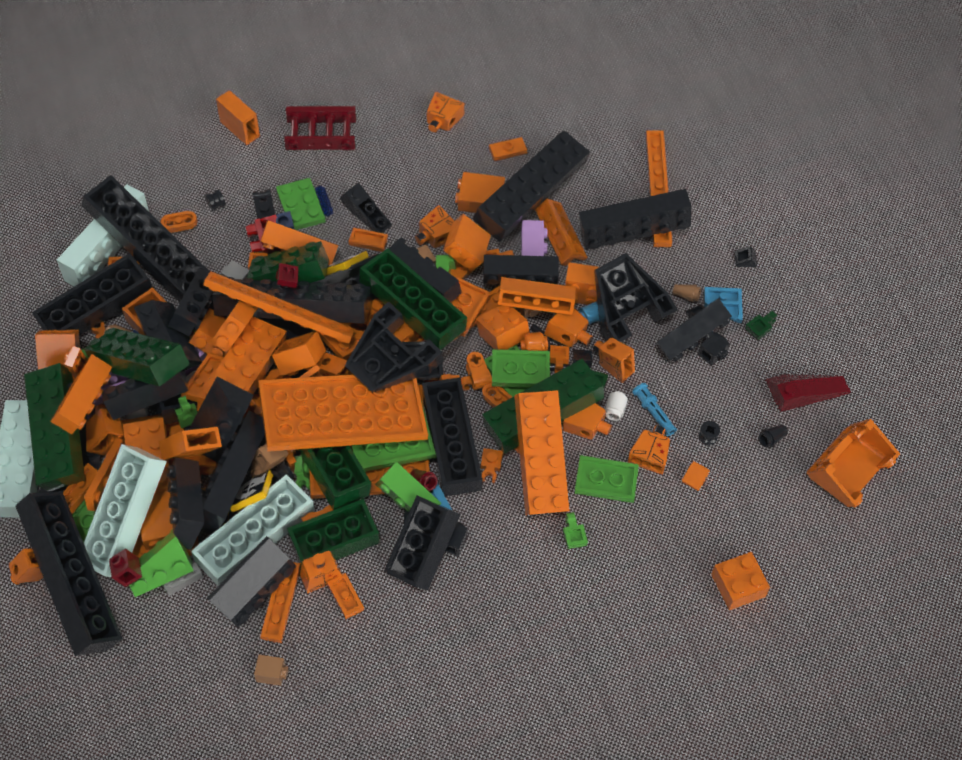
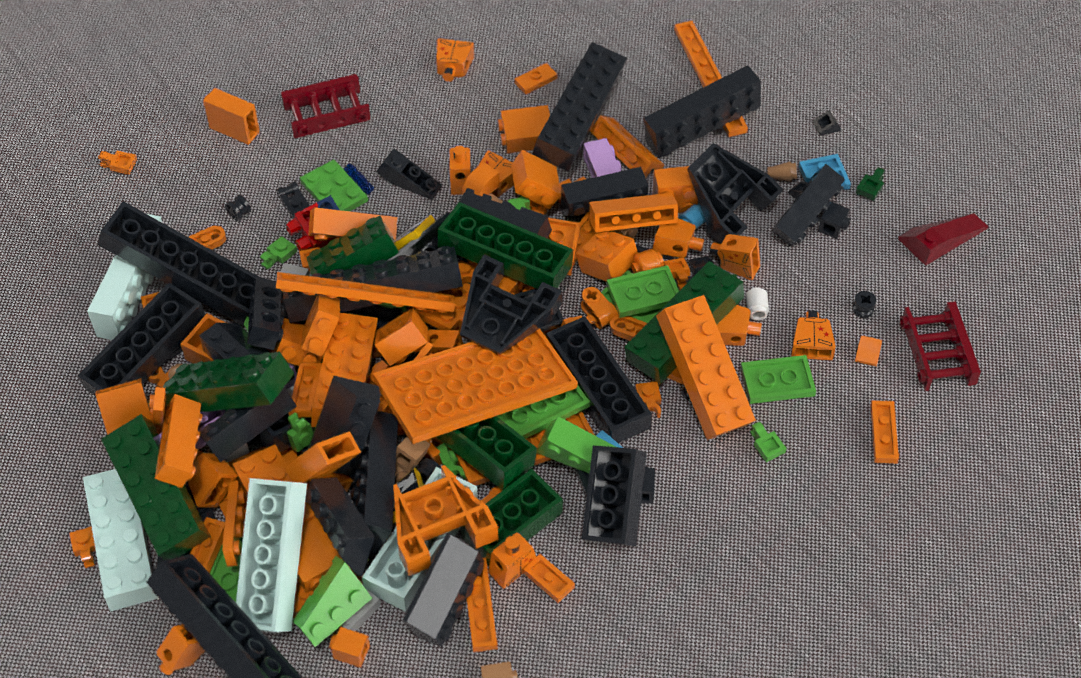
camera: 15 degrees left, 5 degrees down
(125, 567) = (298, 614): dark red brick -> none
(135, 134) = (120, 162): none -> orange plate
(163, 605) = (349, 646): none -> orange brick
(234, 247) = (279, 251): none -> bright green plate
(264, 514) = (435, 511): none -> orange wedge
(287, 275) = (360, 257): dark red bracket -> none
(368, 239) = (422, 206): orange tile -> none
(412, 211) = (459, 163): none -> orange torso
(419, 233) = (482, 180): none -> orange brick
(425, 478) = (593, 426): dark red cone -> none
(650, 402) = (790, 291): dark azure pin -> none
(679, 552) = (884, 432): none -> orange plate
(740, 580) = (959, 441): orange brick -> none
(770, 436) = (929, 289): black cone -> none
(778, 483) = (956, 334): none -> dark red fence
(853, 461) = (1021, 291): orange windscreen -> none

